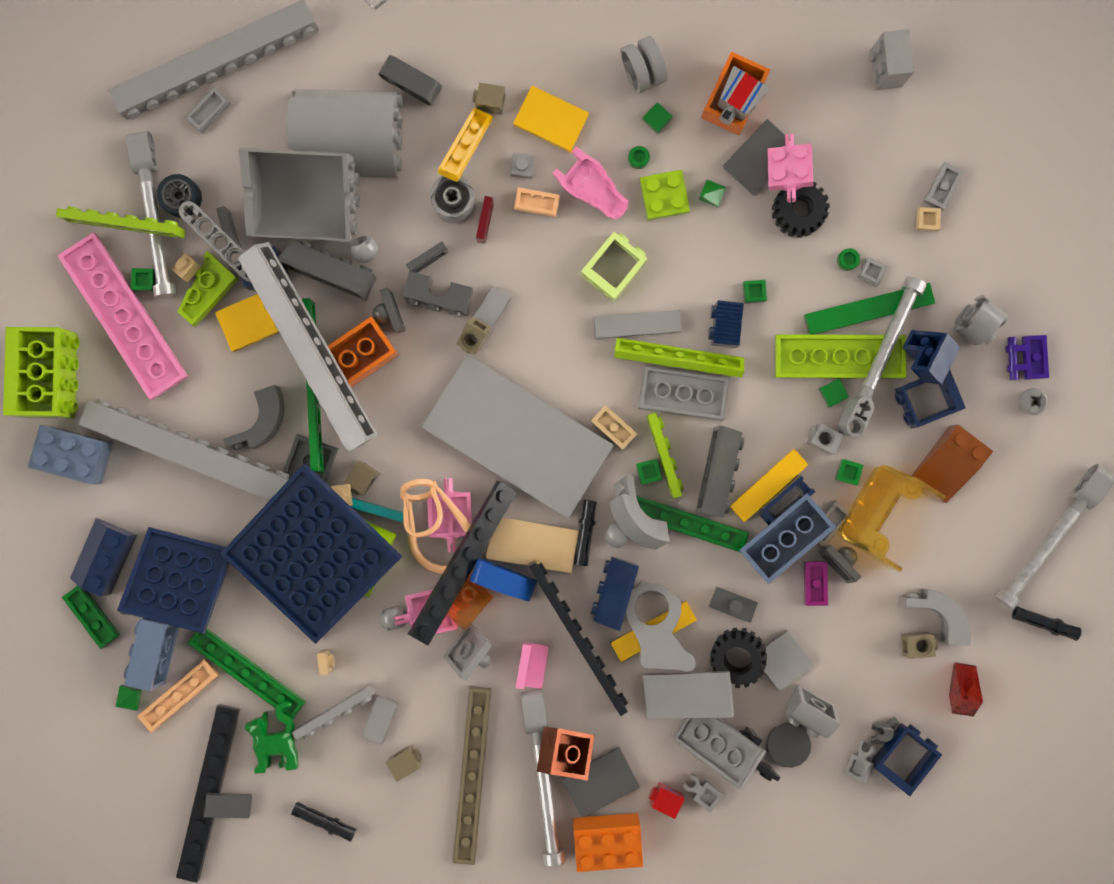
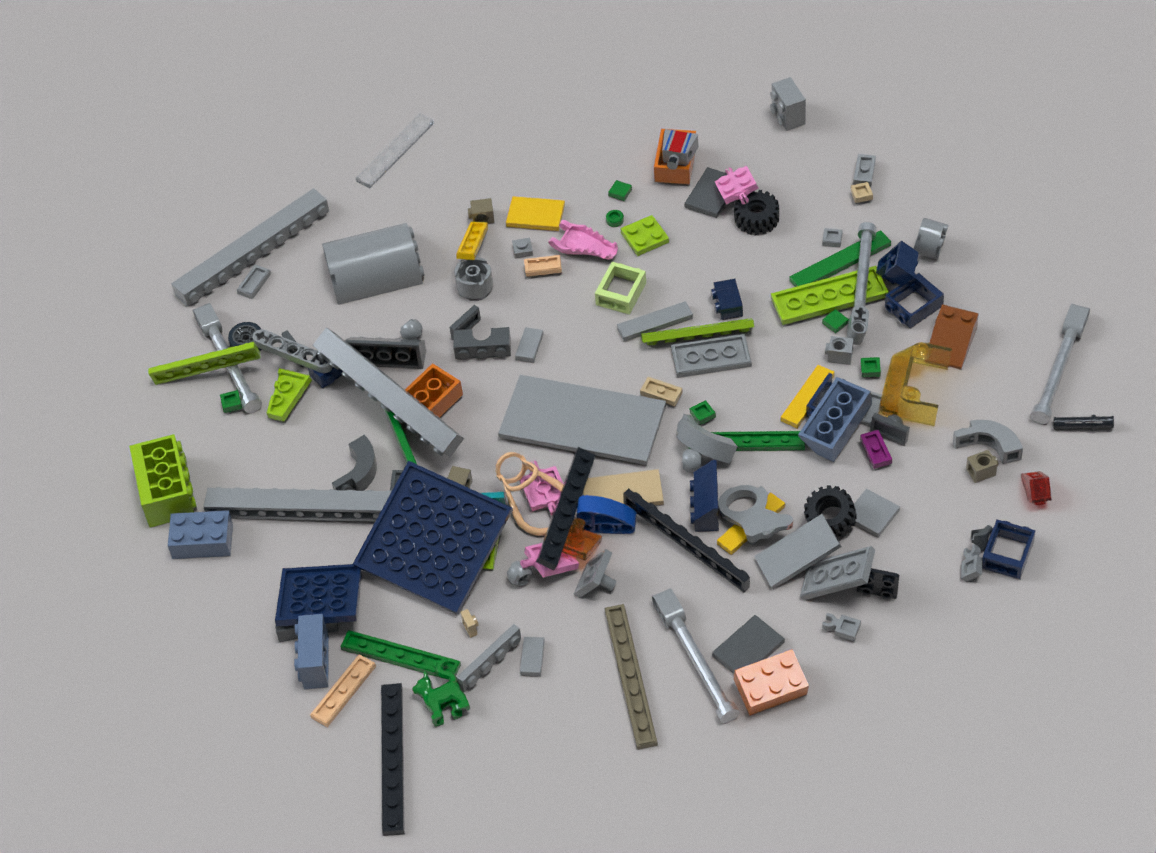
camera: 10 degrees left, 35 degrees down
(91, 616) = (247, 652): green tile -> none
(102, 558) = (247, 602): dark blue slope -> none
(122, 316) = (220, 430): bright pink plate -> none
(128, 697) = (298, 704): green slope -> none
(186, 267) = (265, 383): tan plate -> none
(227, 805) = (414, 757): dark grey tile -> none
(246, 323) = (331, 404): yellow tile -> none
(299, 194) = (348, 297): light grey cylinder -> none
(332, 825) = (507, 747): black pin -> none
(388, 311) = (446, 363): dark grey tile -> none
(404, 762) = (565, 678): dark tan brick -> none
(410, 80) = (416, 217): dark grey beam -> none
(479, 330) = (520, 352): dark tan brick -> none
(485, 219) = (504, 286): dark red tile -> none
(532, 665) = (653, 576): bright pink panel -> none
(565, 753) = (706, 619): copper brick -> none
(585, 532) = (663, 462): black pin -> none
(643, 64) = (596, 156): light grey wheel -> none
(662, 446) = (707, 392): lime plate -> none
(666, 800) = (811, 639): red brick -> none
(712, 193) = (682, 224): green slope -> none
(719, 471) = (761, 392): dark grey slope -> none
(733, 604) = (805, 484): dark grey tile -> none
(754, 291) = (742, 275): green tile -> none
(788, 745) = (909, 569): dark grey tile -> none
(812, 712) = (911, 534): light grey brick -> none
(848, 259) = (809, 235): green tile -> none
(1034, 357) = (987, 253): dark purple plate -> none
(1039, 405) = (999, 280): light grey piece -> none

